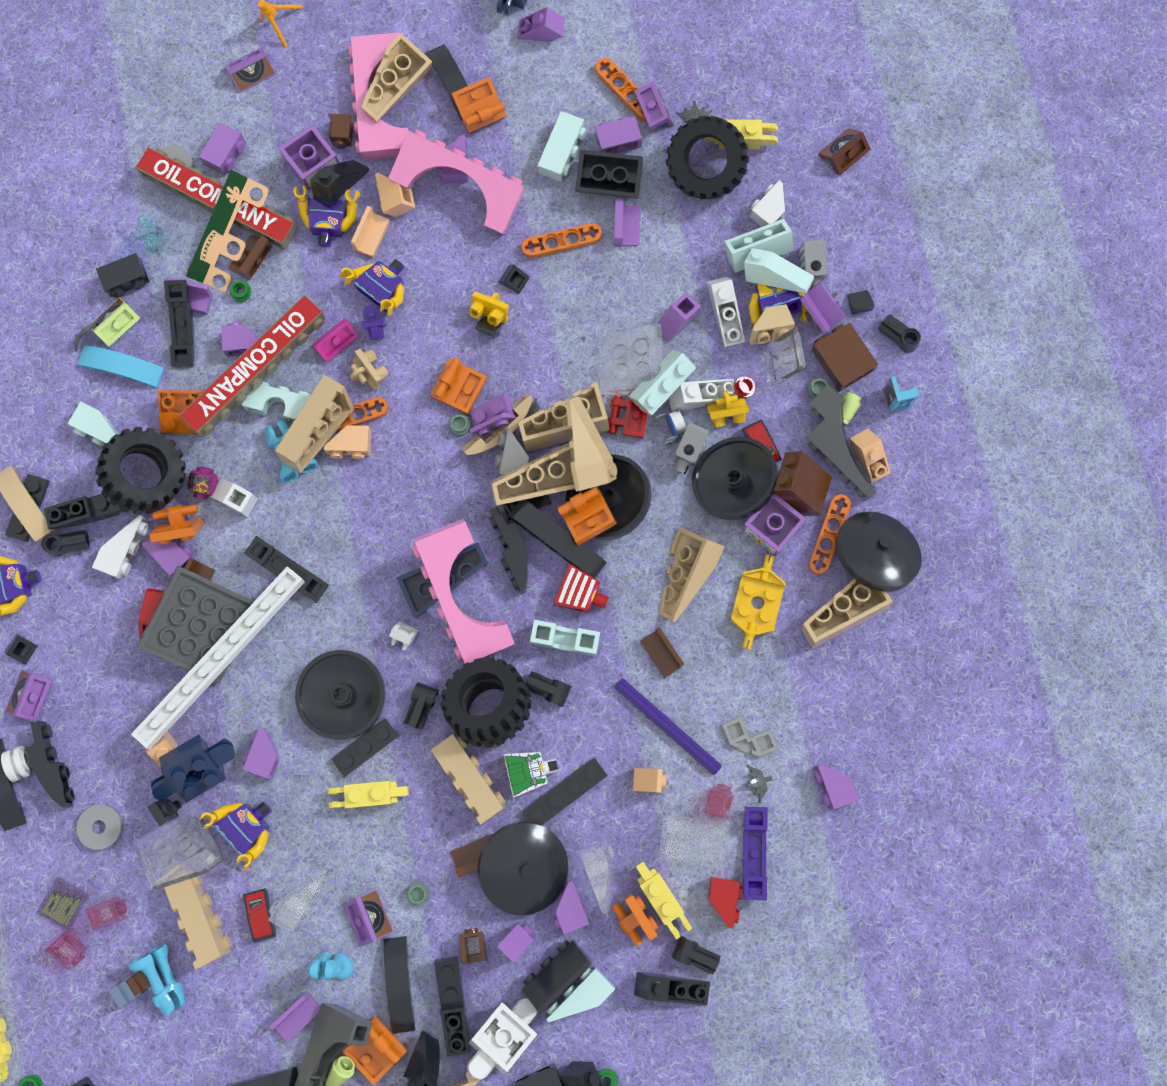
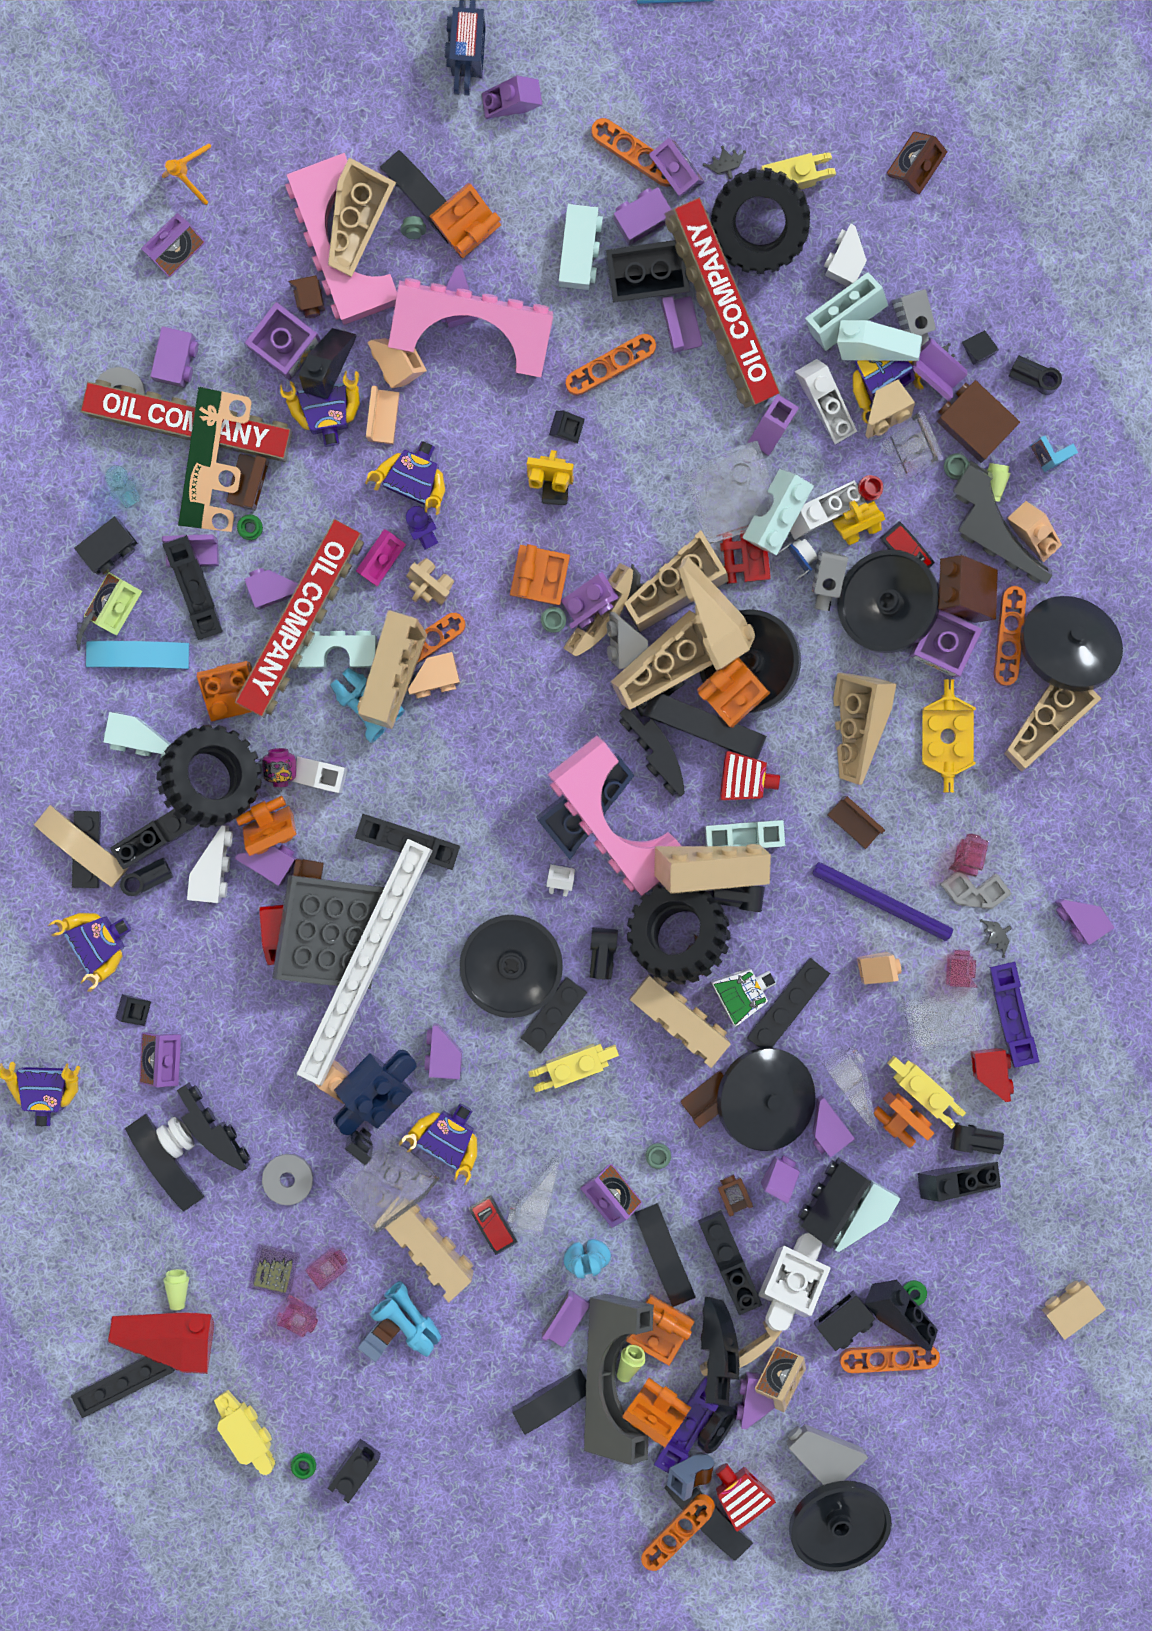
camera: 15 degrees left, 10 degrees up
(437, 101) = (413, 227): none -> sand green plate
(529, 653) = (711, 867): none -> tan wedge
(660, 212) = (721, 302): none -> brick
(750, 706) = (970, 855): none -> clear pink window

